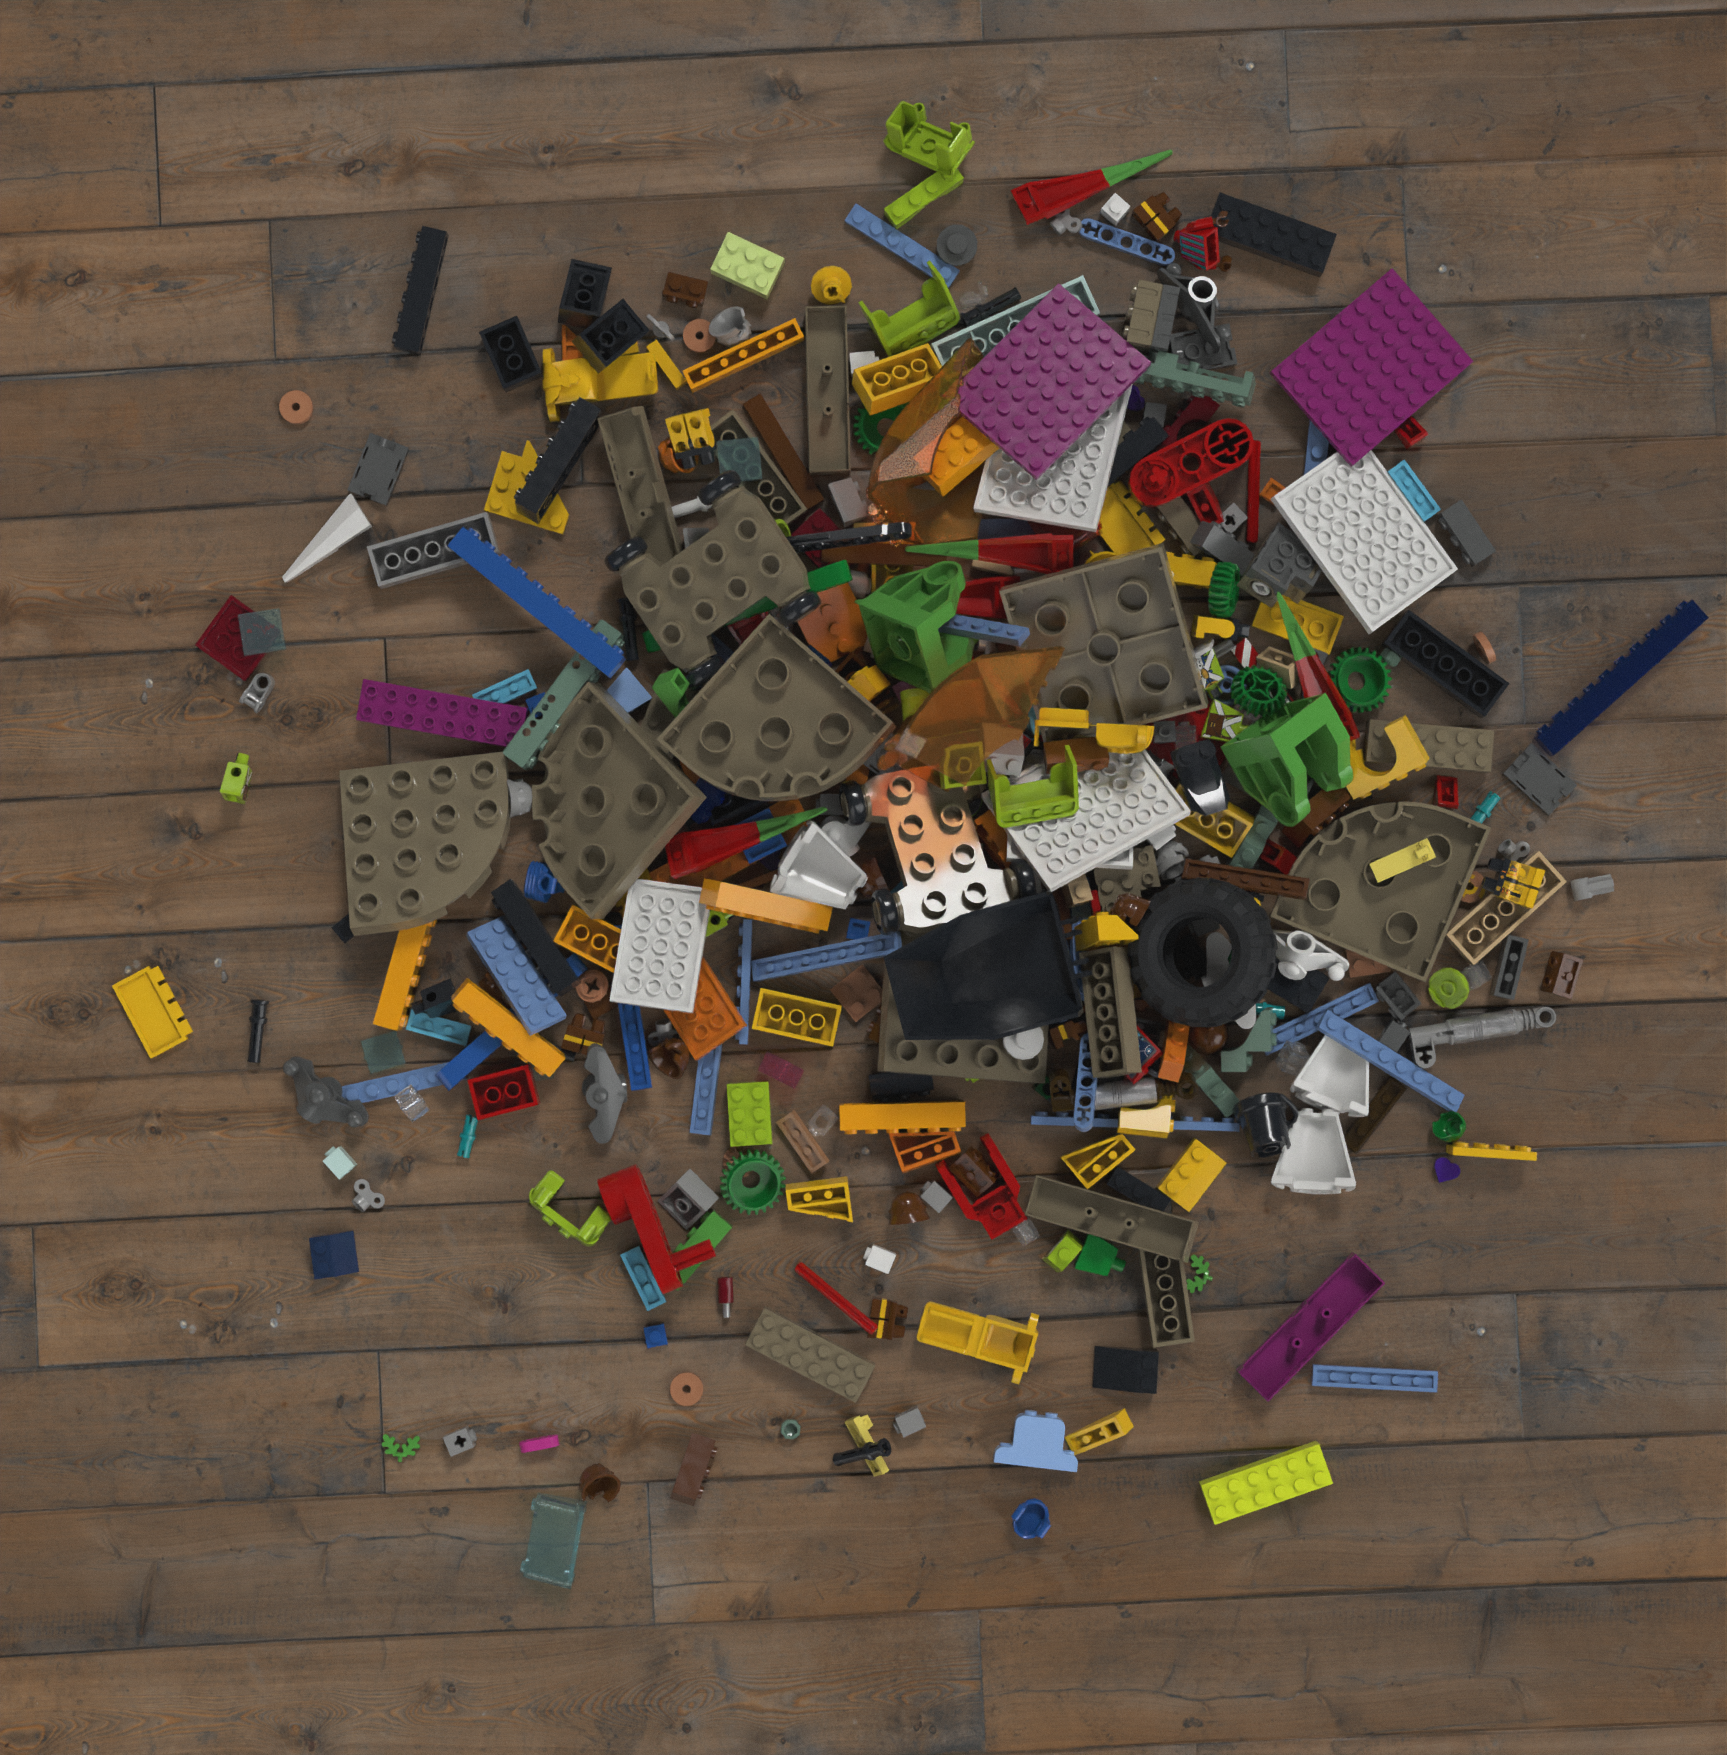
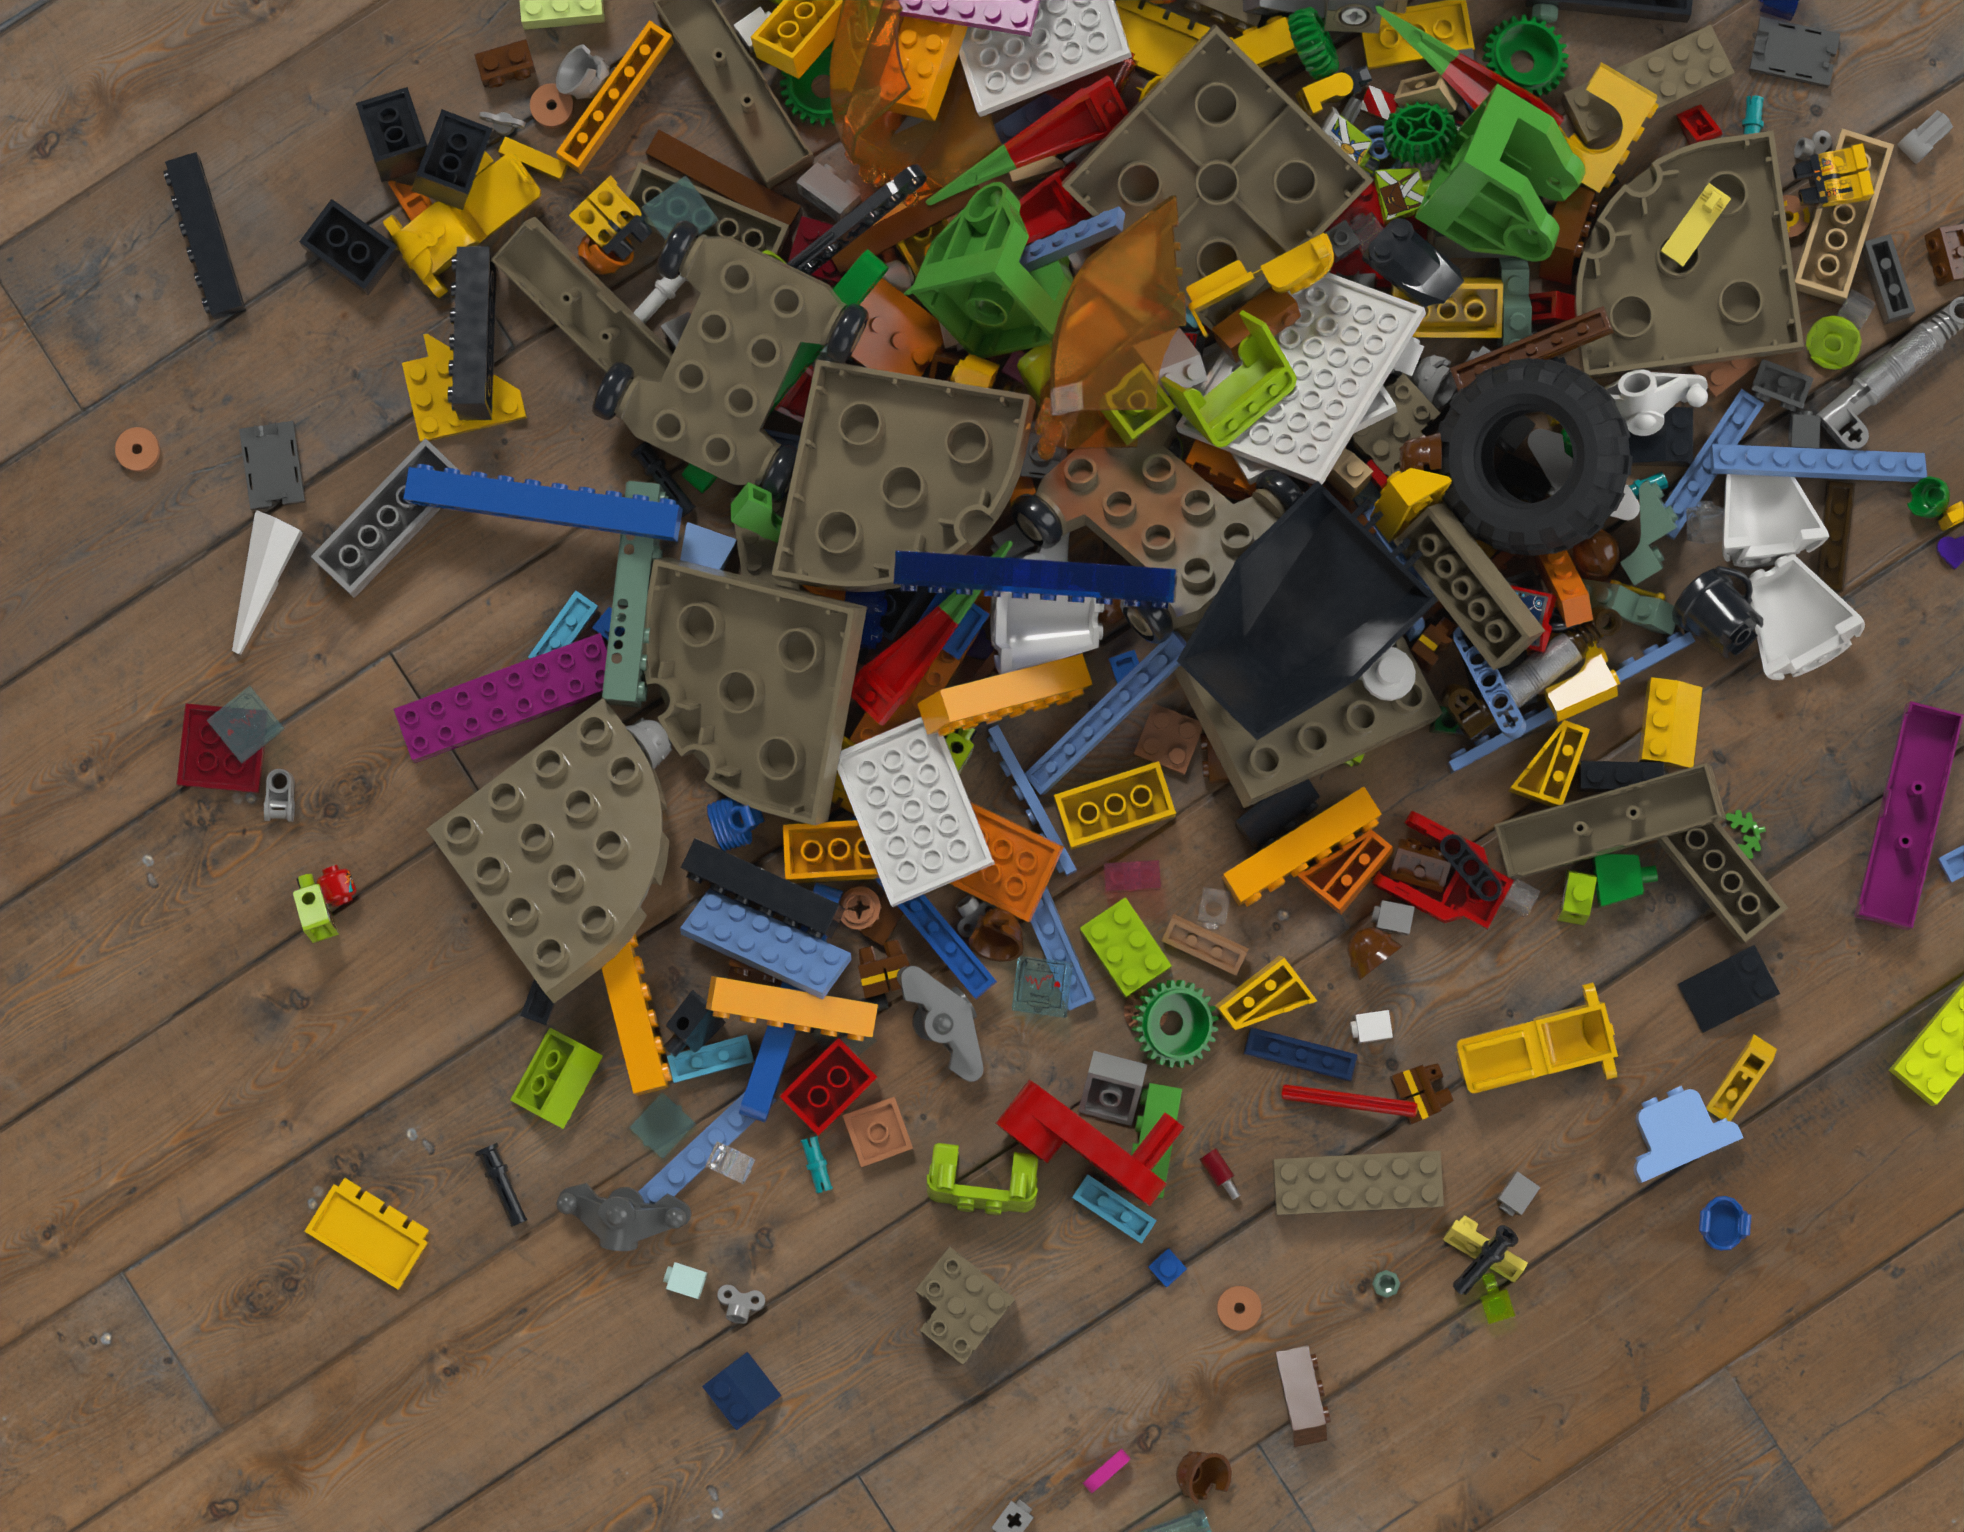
camera: 25 degrees left, 5 degrees down
(261, 773) = (337, 885): none -> red head
(331, 981) = (556, 1078): none -> lime slope
(509, 1283) = (965, 1305): none -> dark tan piece
(519, 1138) = (877, 1132): none -> nougat plate
(680, 1107) = (1042, 986): none -> clear light blue tile
(823, 1247) = (1300, 1054): none -> dark blue tile
(824, 845) = (1035, 577): none -> clear blue brick
(854, 1482) = (1496, 1303): none -> clear neon green plate
(1001, 1205) = (1458, 862): none -> black beam
(1234, 1087) = (1640, 591): none -> yellow hinge

